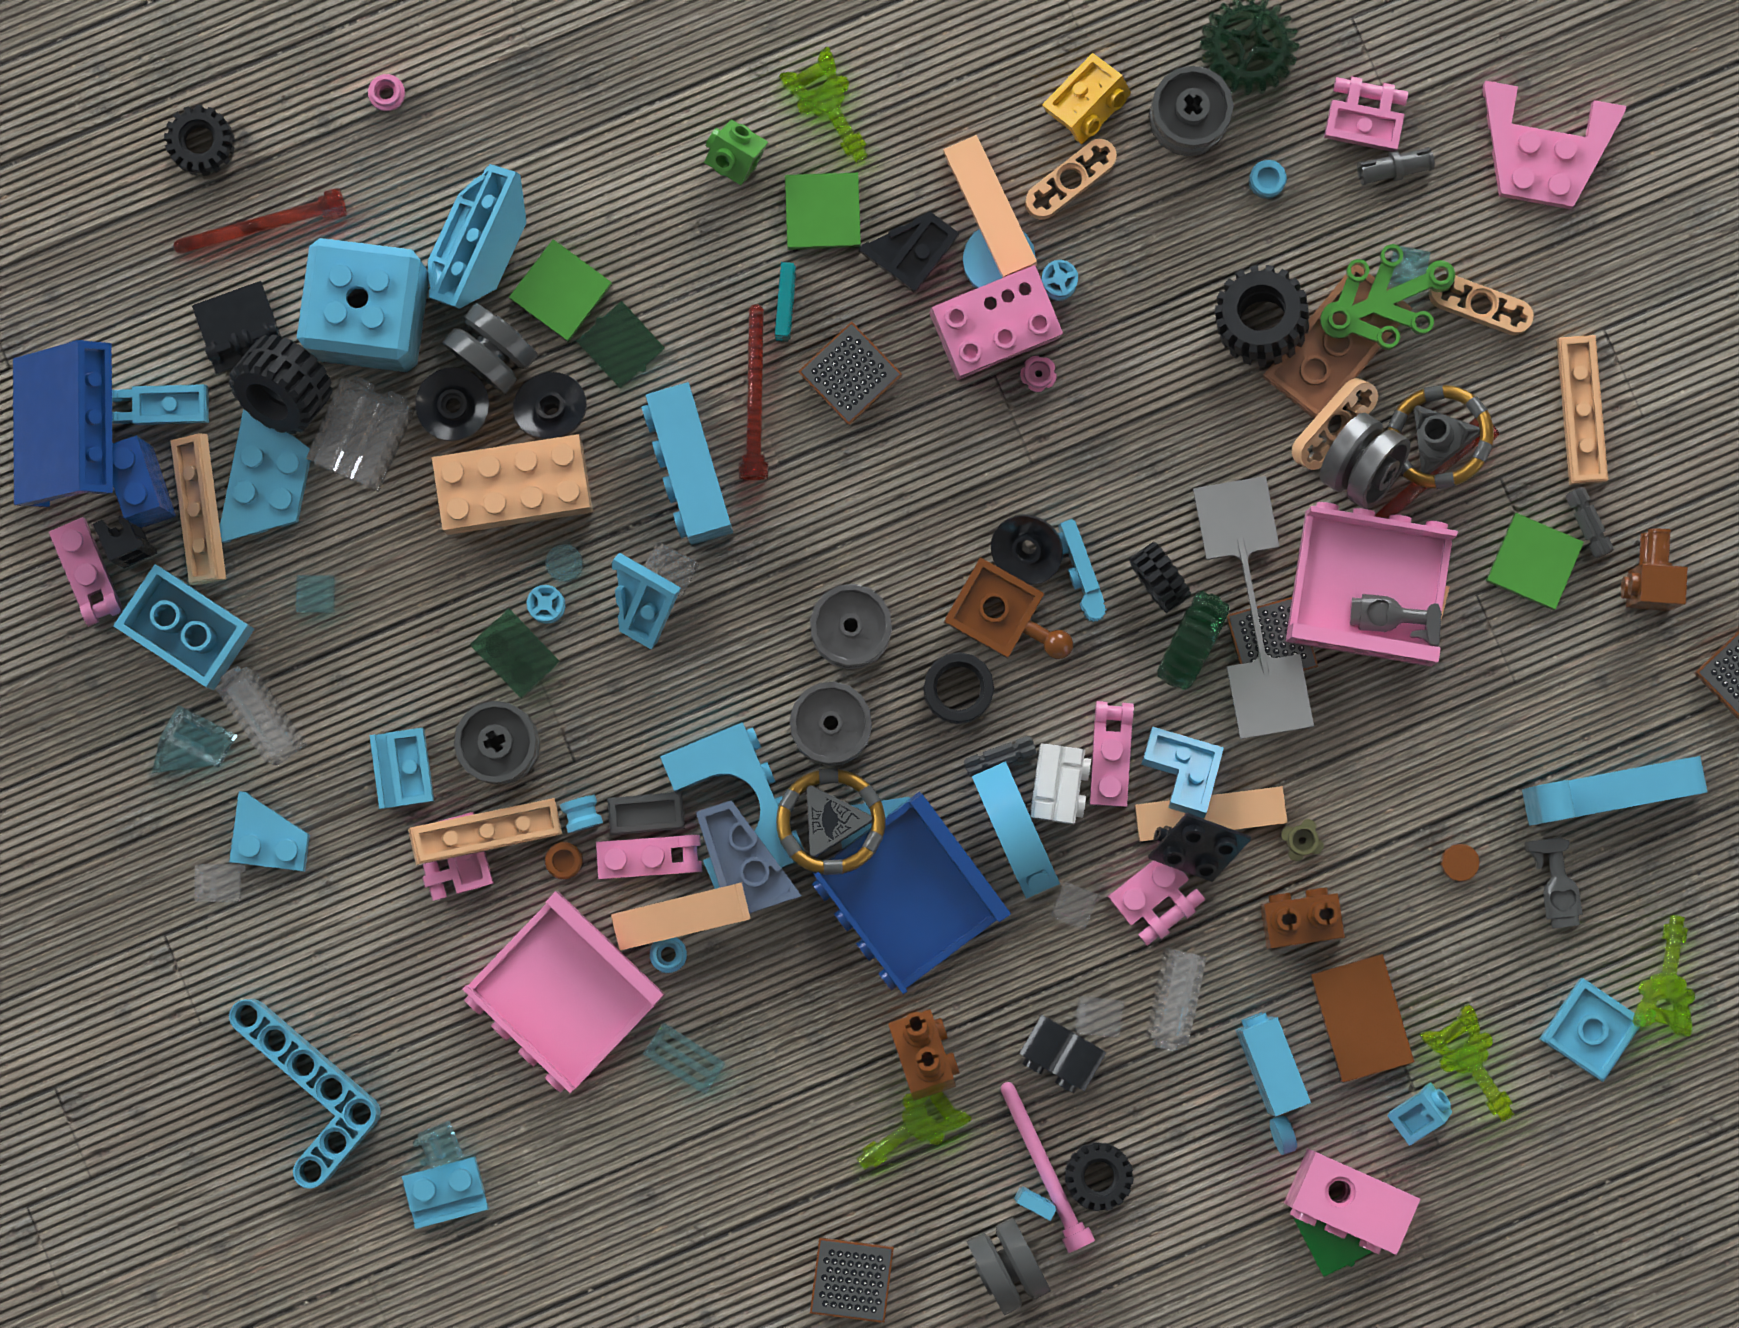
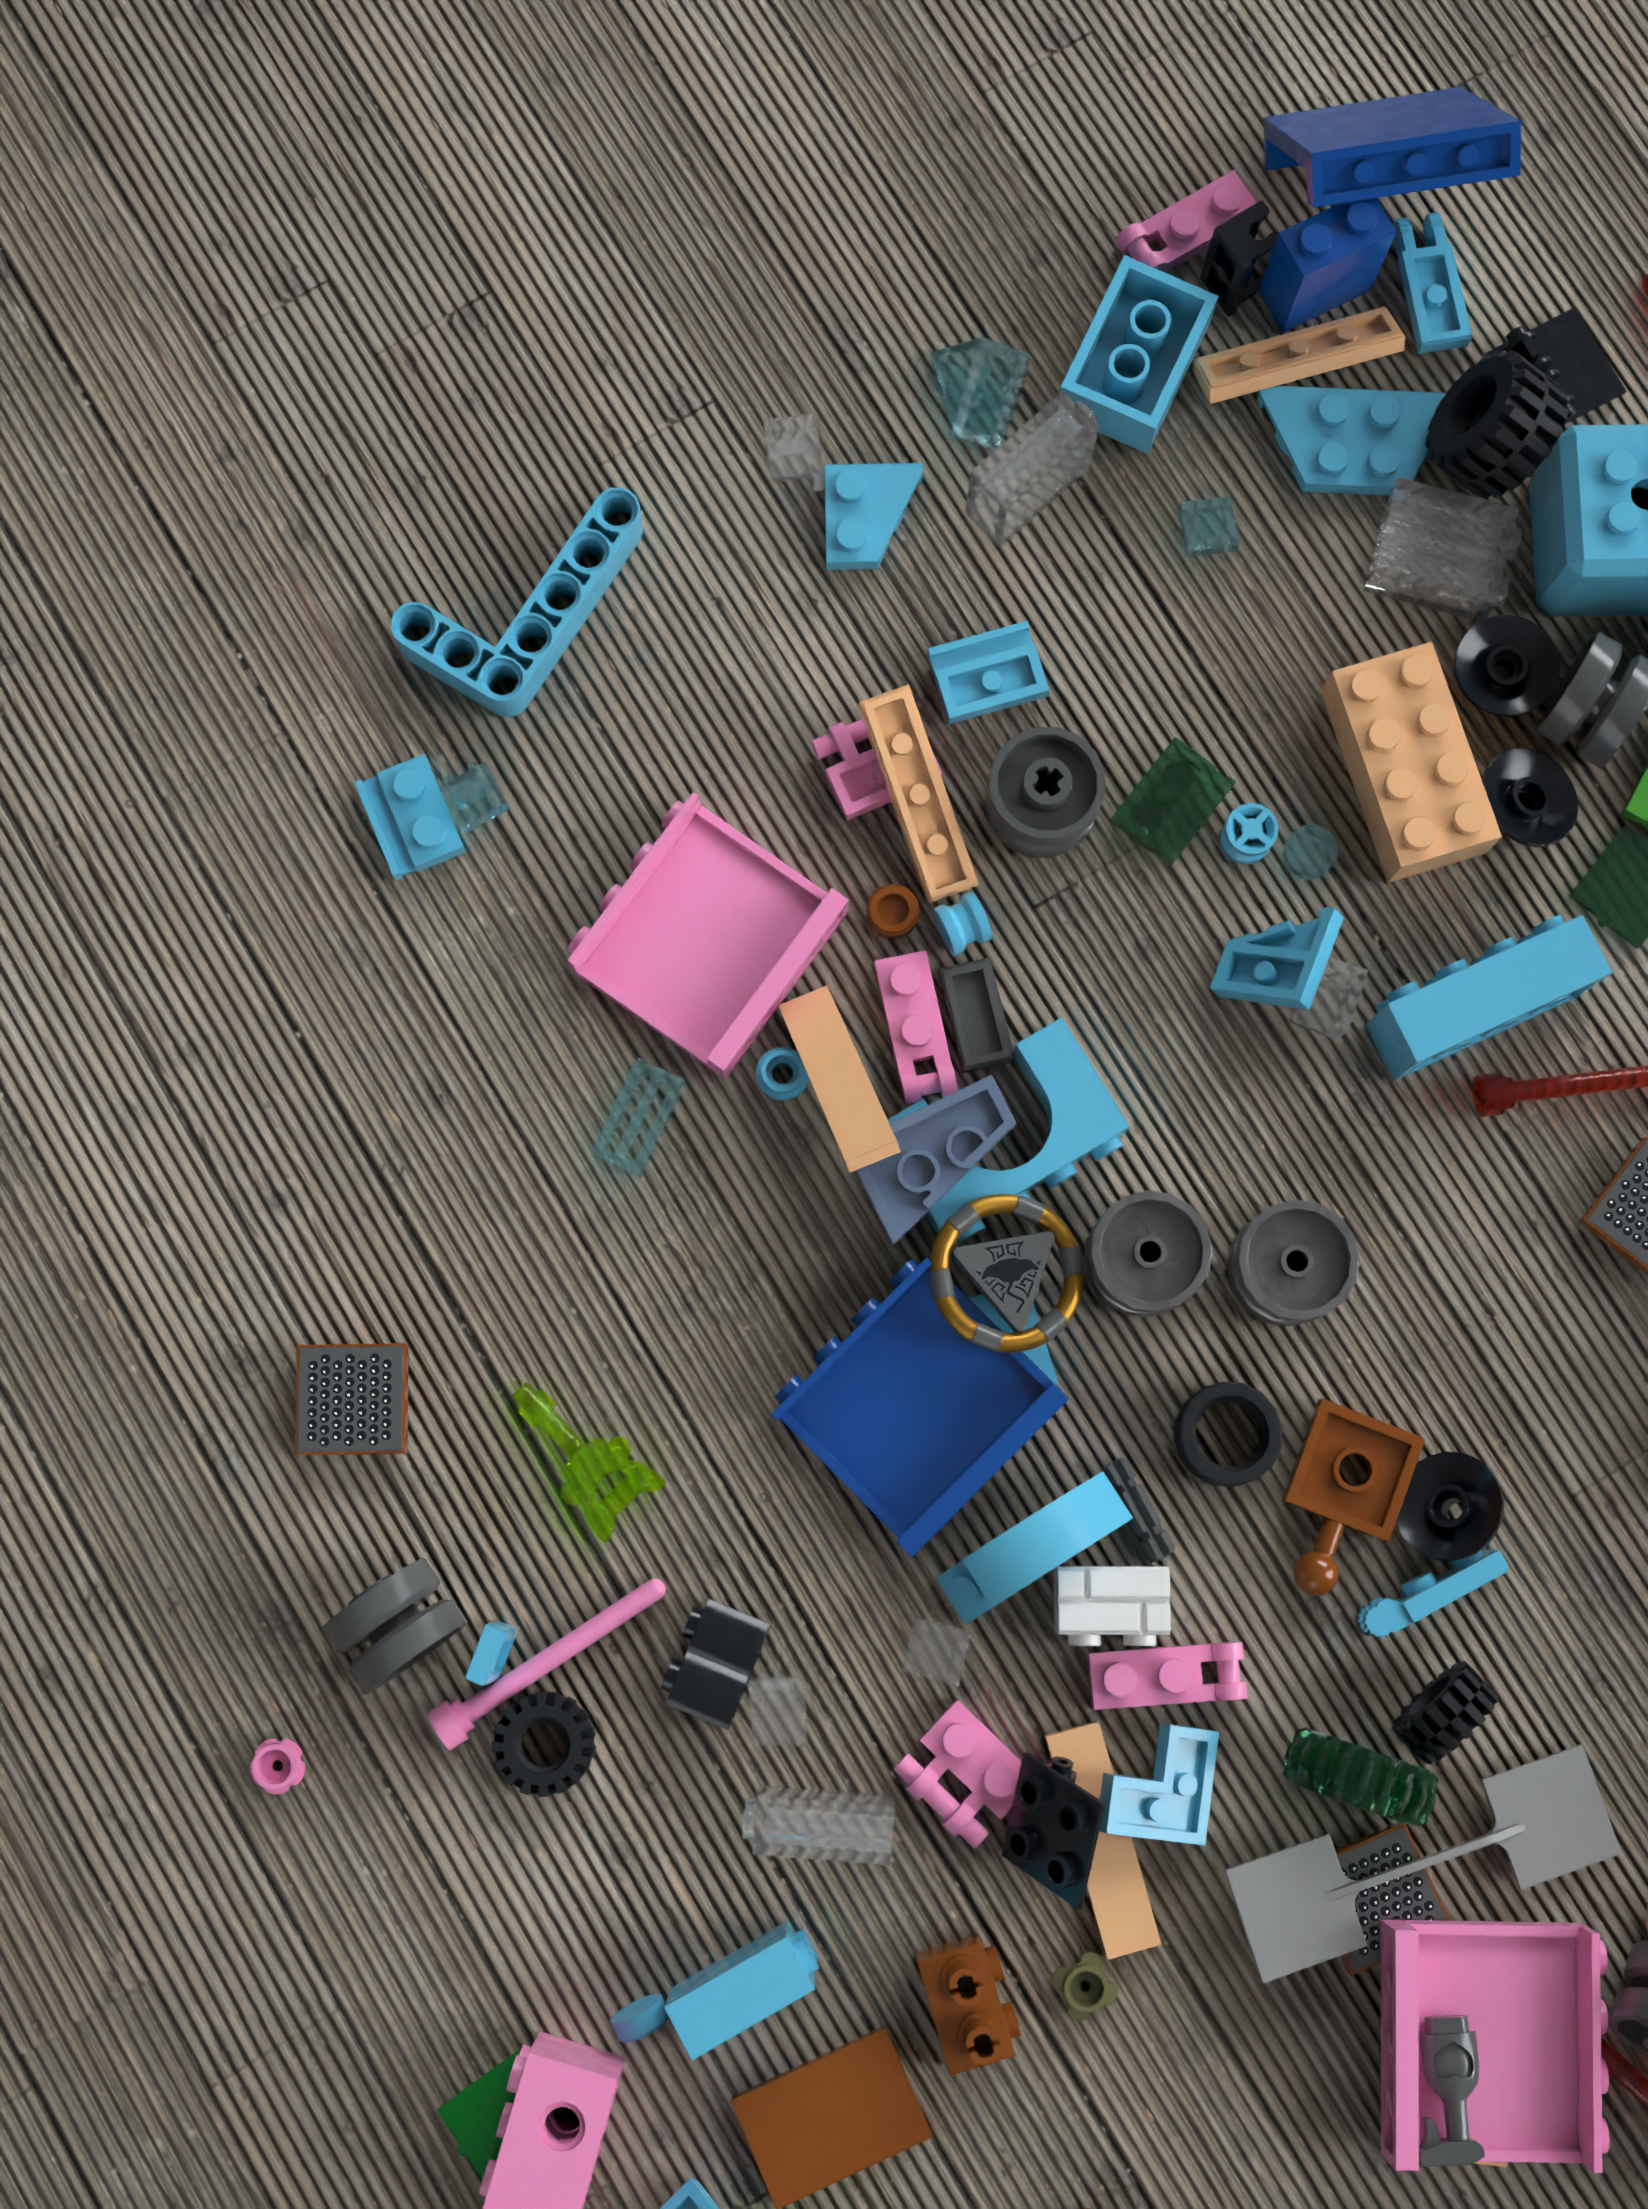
camera: 80 degrees right, 5 degrees down
(923, 1055) = (689, 1455): dark orange brick -> none

